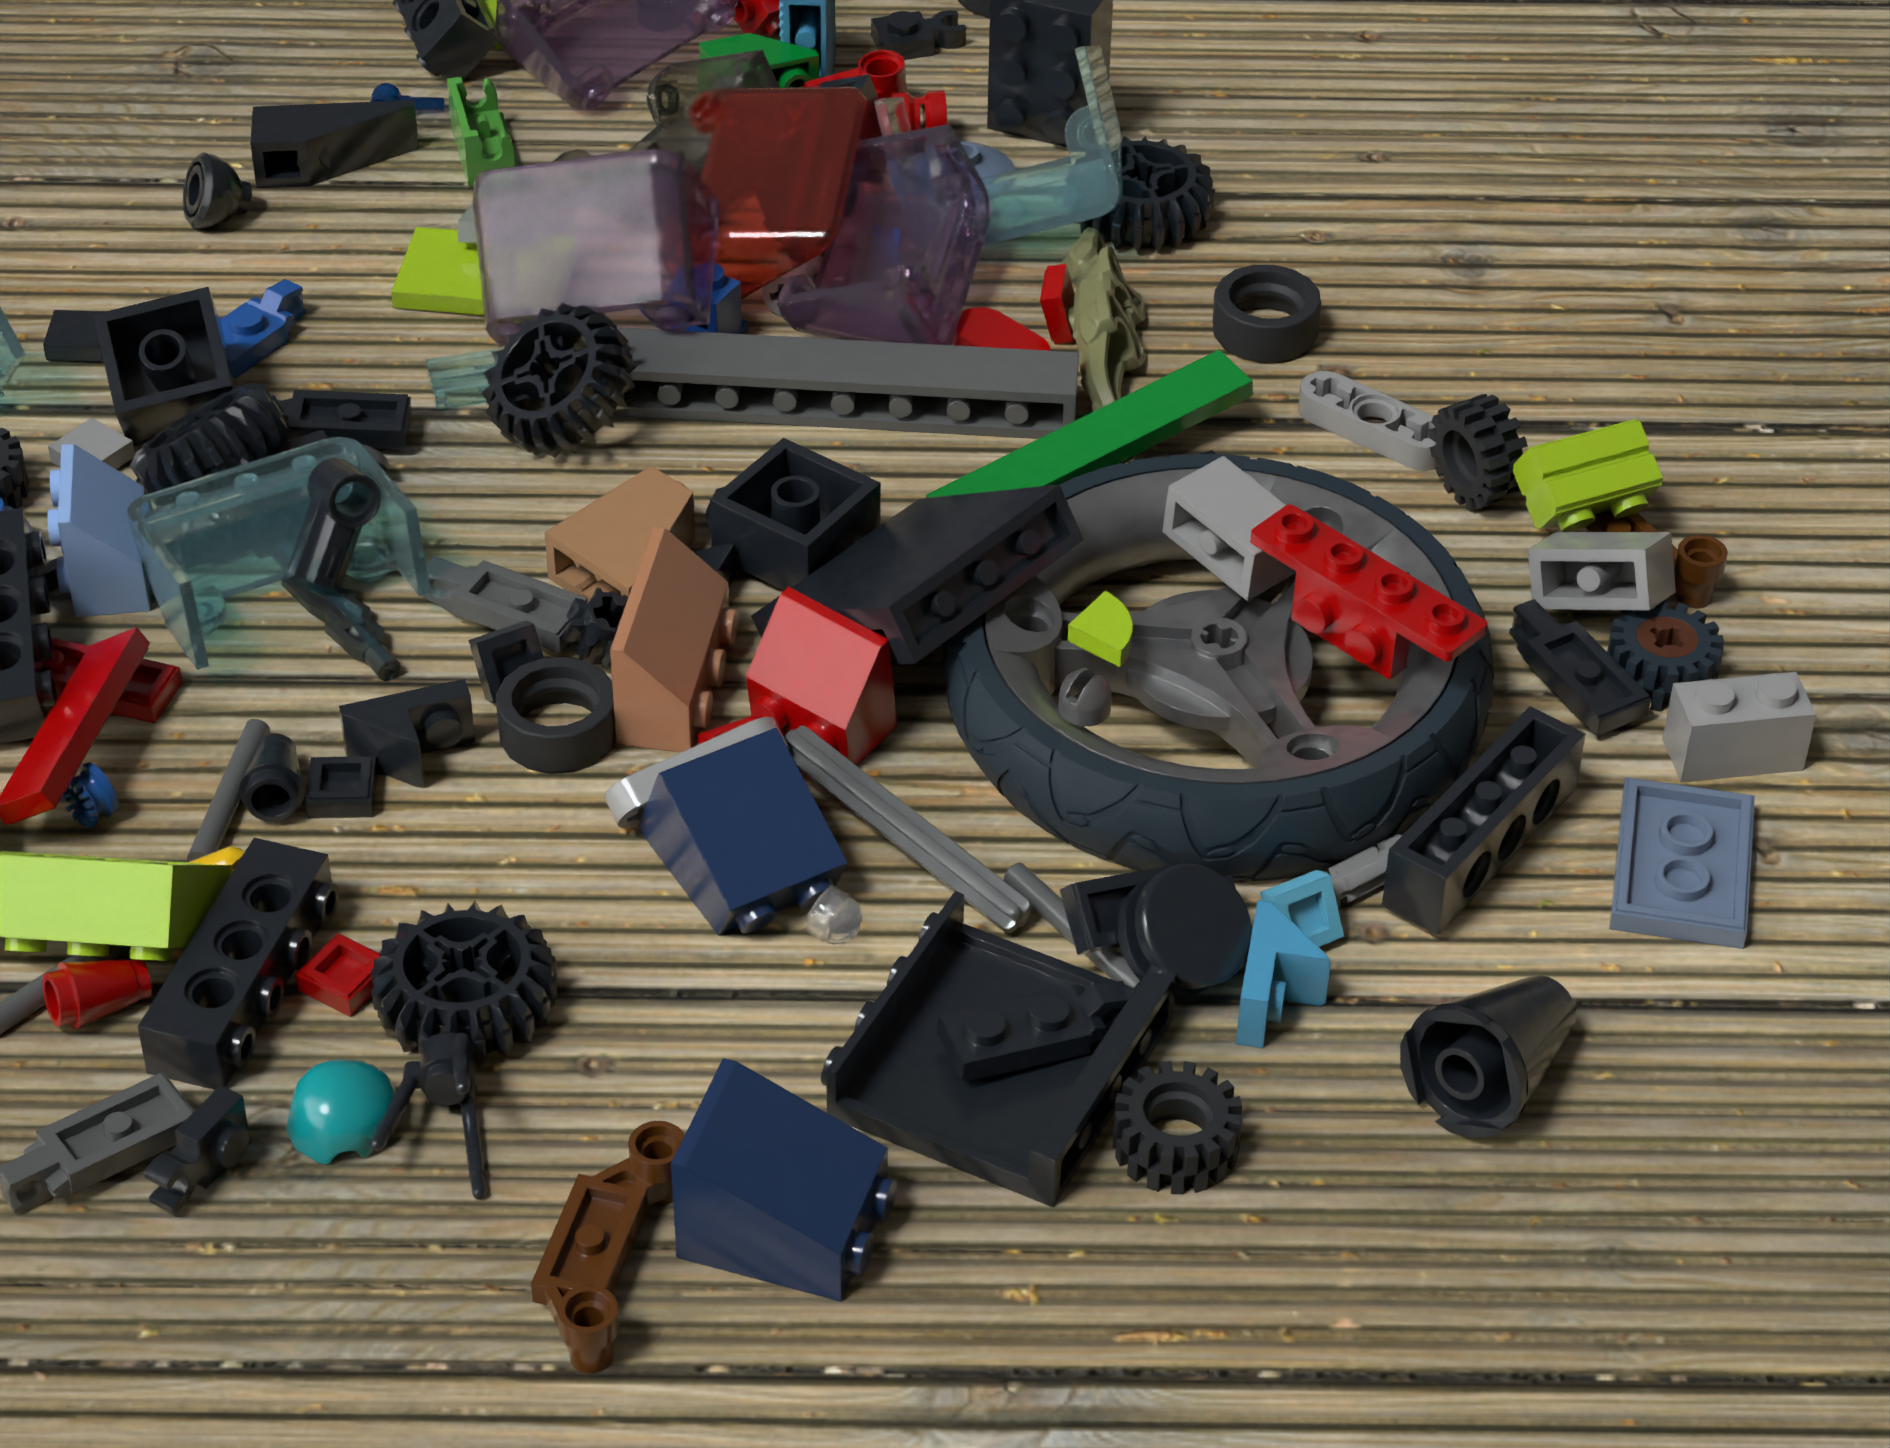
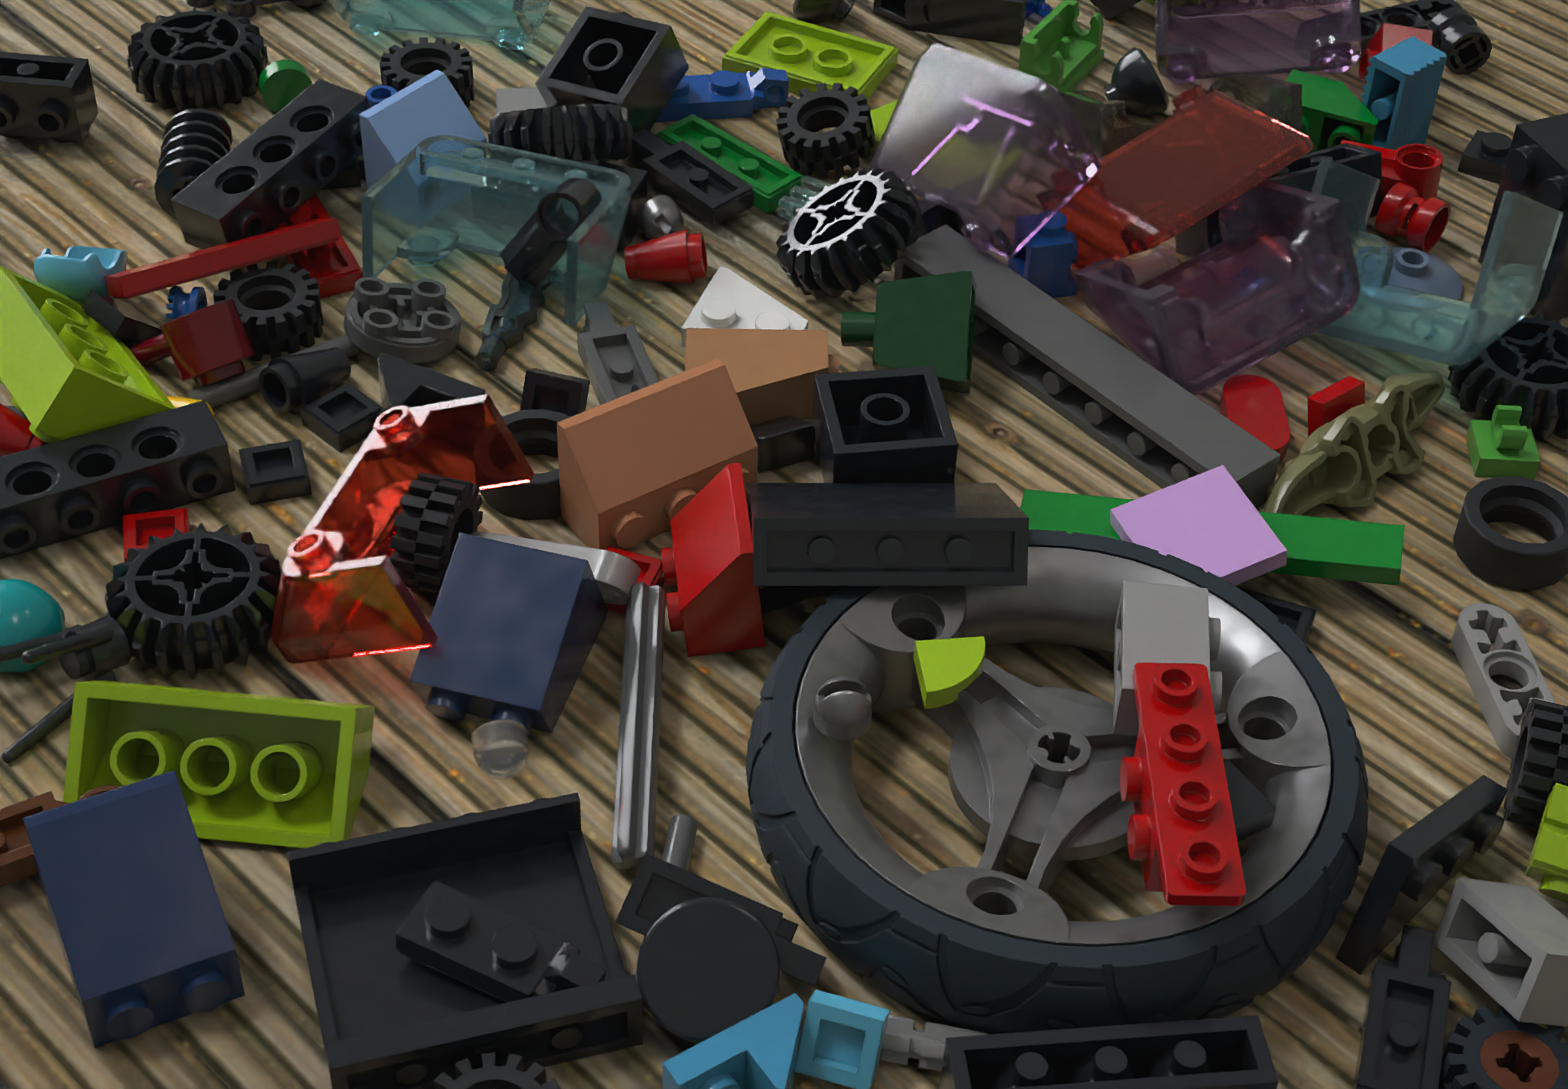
camera: 45 degrees right, 0 degrees up
(44, 837) = (120, 318): none -> black tile
(161, 771) = (275, 306): none -> black tyre
(162, 800) = (201, 343): none -> dark red piece
(246, 259) = (811, 55): none -> lime tile
(281, 681) = (402, 319): none -> dark grey tile
(345, 377) = (765, 175): none -> green tile
(359, 861) = (275, 472): none -> black tile
(401, 334) = (830, 149): none -> black tyre
(431, 485) = (668, 258): none -> red cone
(530, 503) = (738, 304): none -> white wing
(584, 123) = (1137, 85): none -> black brick
(589, 804) = (430, 527): none -> black tyre
(591, 890) = (337, 581): none -> clear red windscreen
(657, 1059) = (243, 761): none -> lime slope
(715, 422) = (920, 326): none -> dark green torso
(1095, 432) = (1205, 524): none -> lavender tile
(1178, 258) = (1502, 445): none -> bright green tile
(1485, 559) = (1419, 866): none -> black wing

